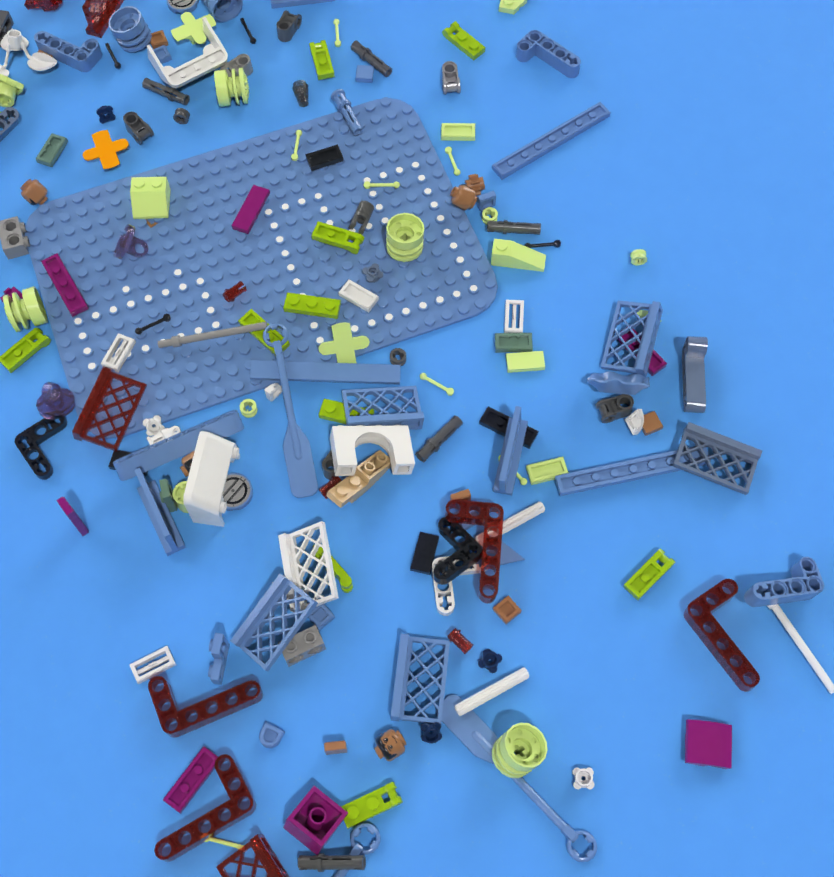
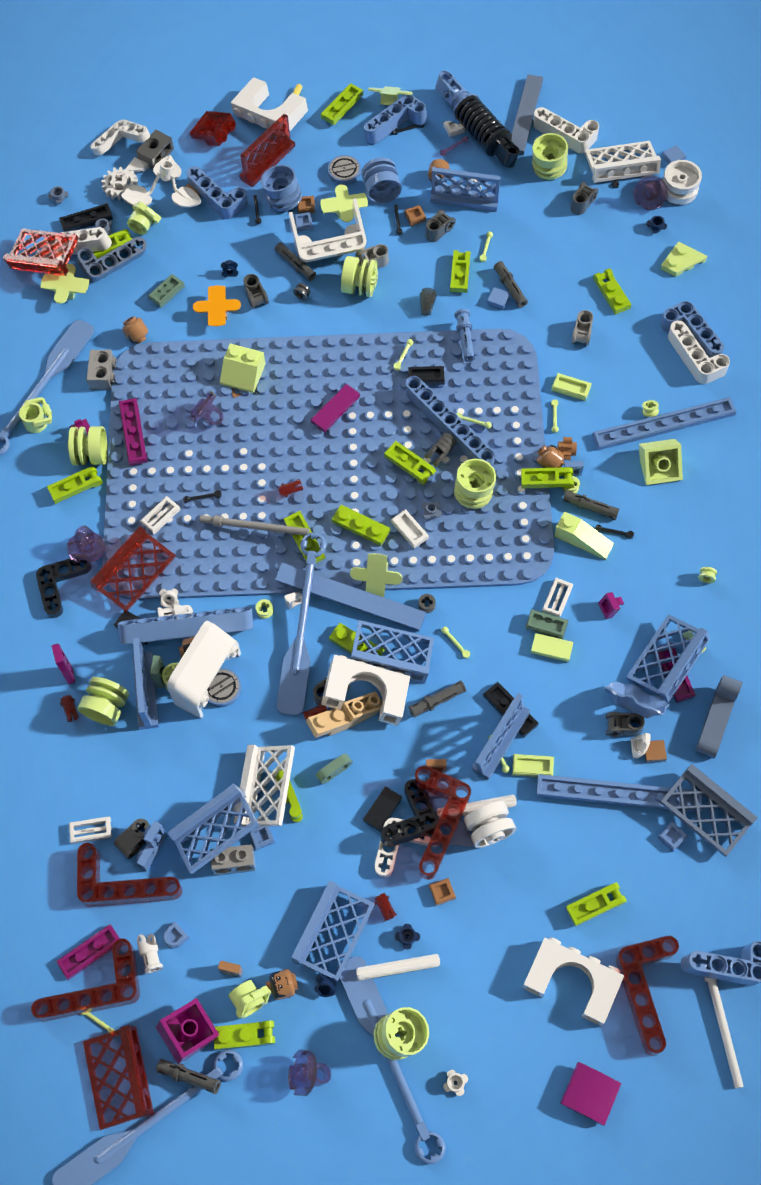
camera: 20 degrees right, 0 degrees up
(91, 556) = (68, 705): none -> clear red pin
(124, 539) = (103, 701): none -> yellowish green wheel
(197, 659) = (132, 838): none -> dark grey piece
(251, 759) = (149, 952): none -> white piece
(262, 23) = (415, 215): none -> medium nougat tile
(357, 189) = (446, 415): none -> medium blue beam
(363, 769) = (248, 999): none -> yellowish green piece
(367, 531) = (334, 768): none -> sand green beam
(441, 819) = (303, 1074): none -> clear purple tile
(467, 214) = (547, 477): none -> lime plate
(529, 533) = (489, 824): none -> white wheel
(535, 130) = (650, 408): none -> yellowish green bush
(555, 75) = (694, 355): none -> white beam
(561, 172) = (661, 461): none -> yellowish green slope
(563, 308) = (610, 605): none -> magenta tile
(681, 638) = (603, 979): none -> white arch
(693, 492) = (672, 836): none -> medium blue tile

